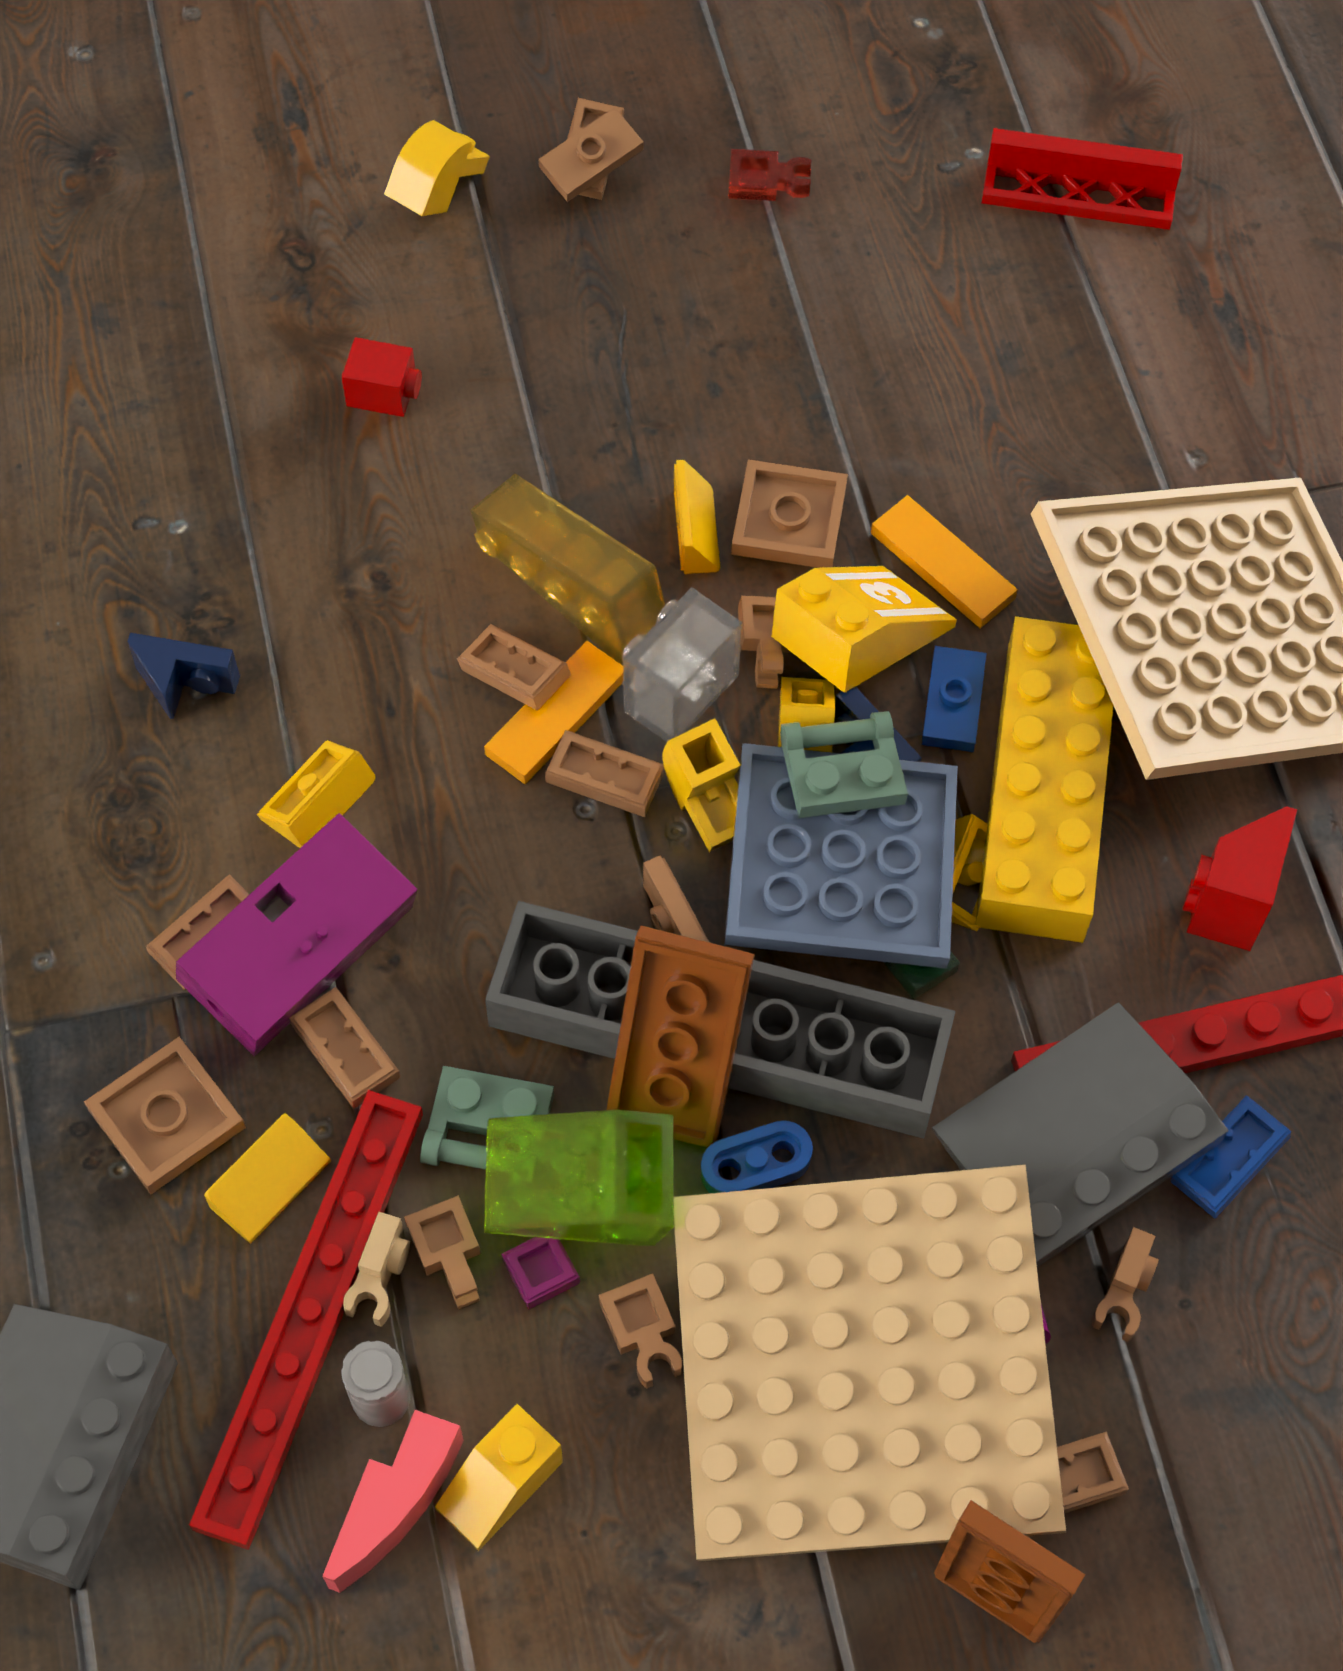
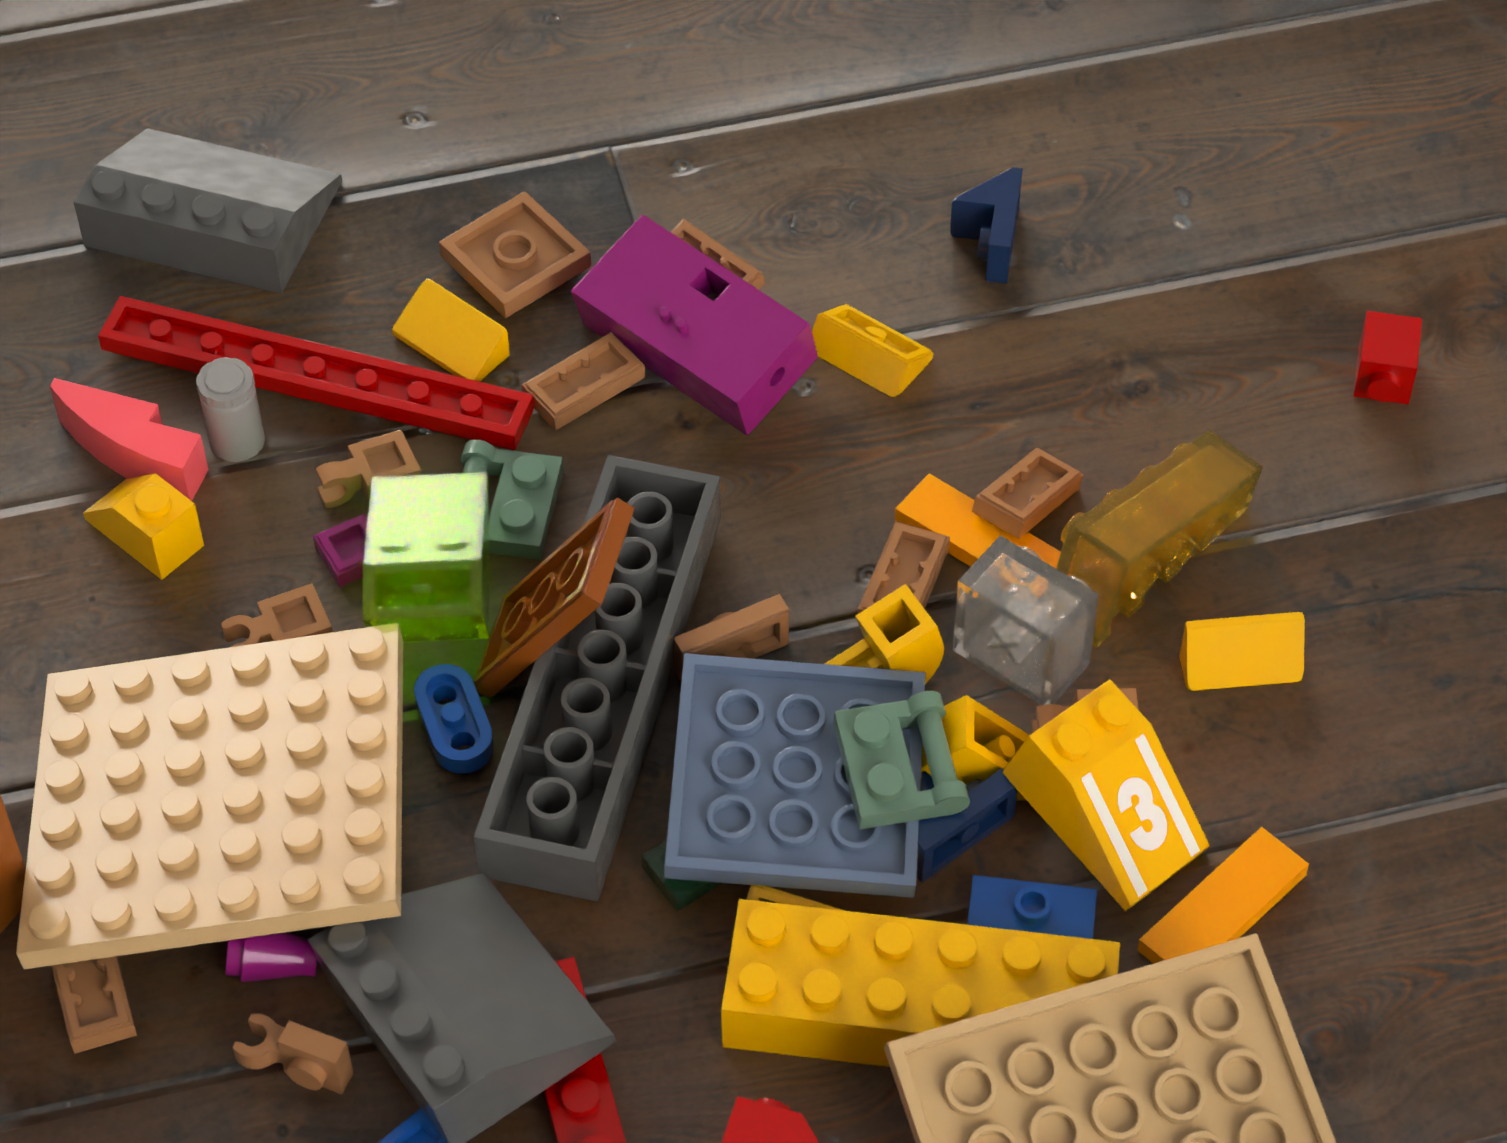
camera: 90 degrees right, 10 degrees down
(383, 1255) = (355, 410): tan plate -> none
(789, 514) = (1263, 744): medium nougat plate -> none

